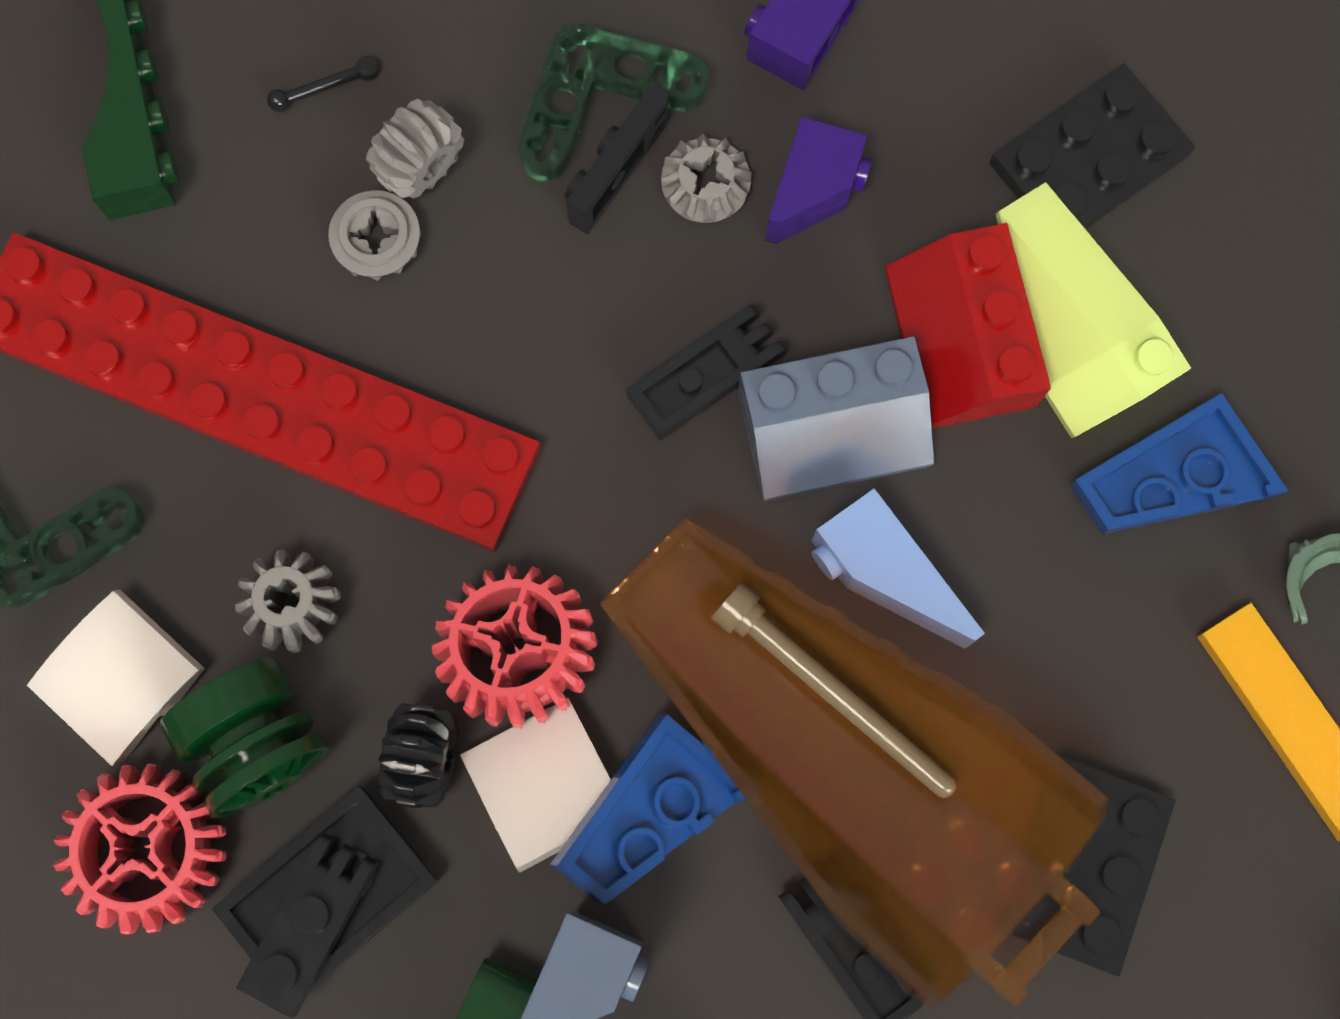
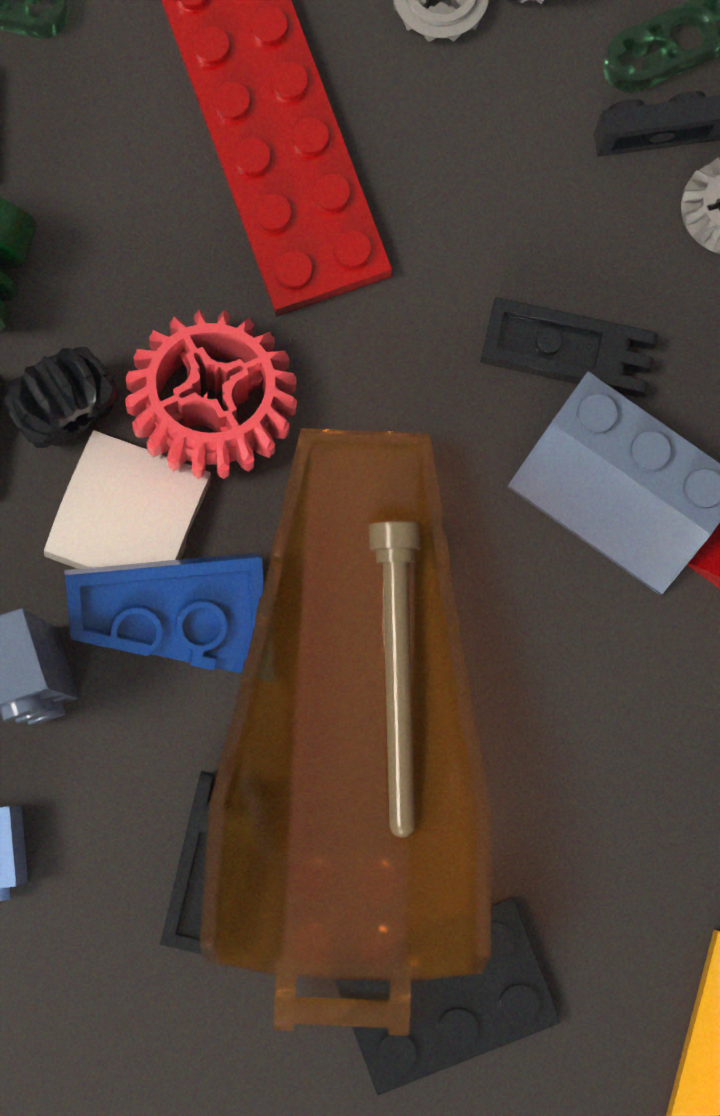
camera: 45 degrees right, 5 degrees up
(284, 580) = (68, 200): light grey gear -> none
(884, 564) = (539, 624): light blue slope -> none

